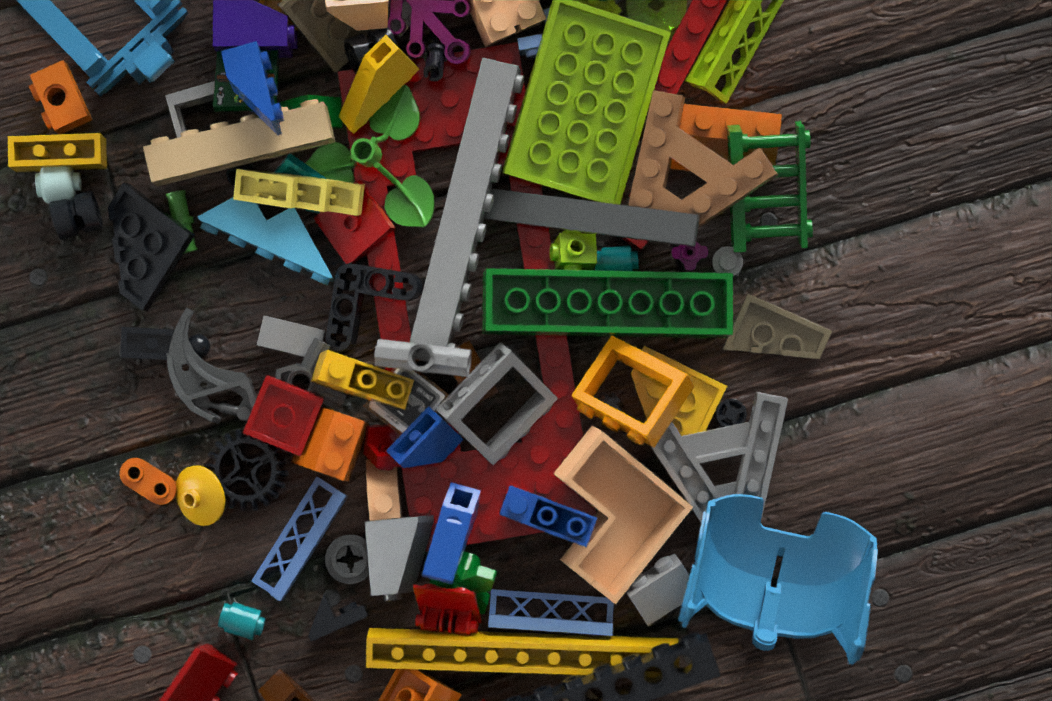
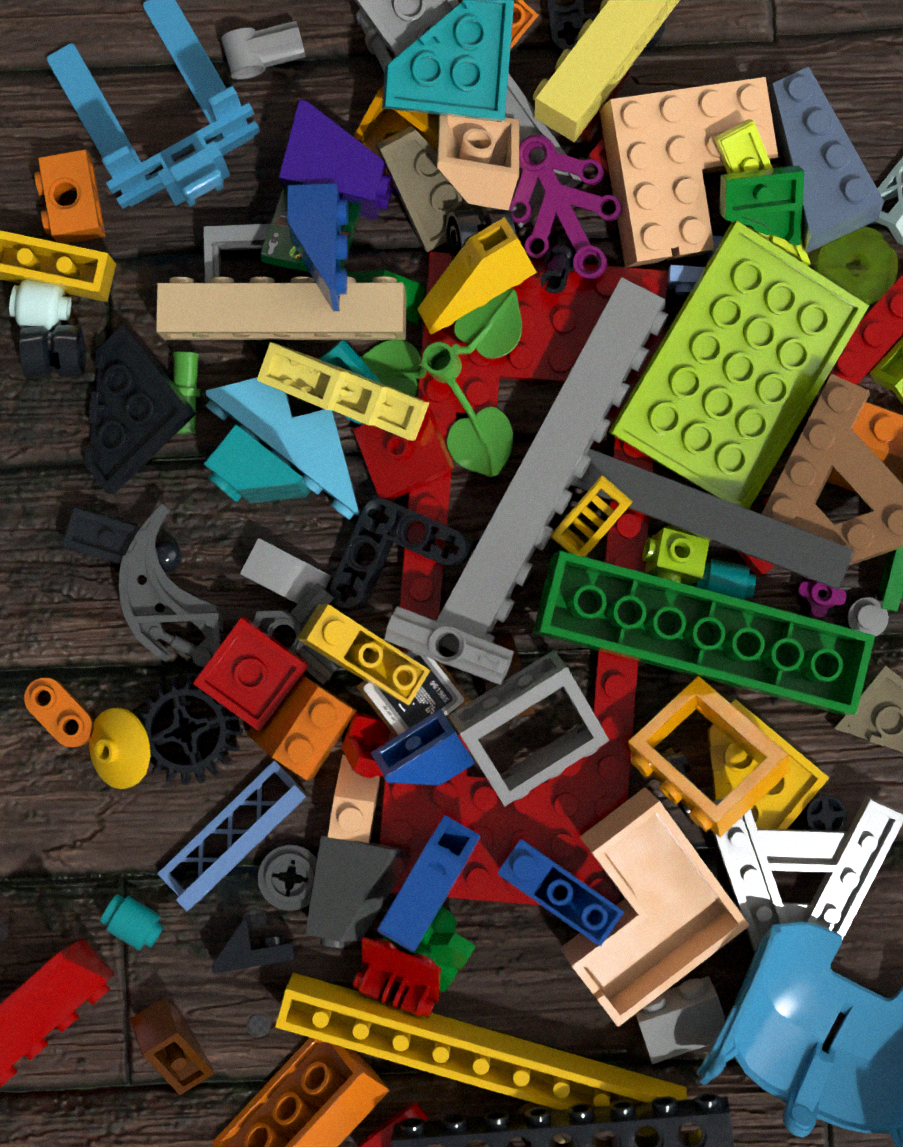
camera: 15 degrees right, 0 degrees up
(247, 267) = (251, 471): none -> teal slope
(495, 260) = (570, 540): none -> yellow slope
(550, 624) = (525, 1027): medium blue fence -> none

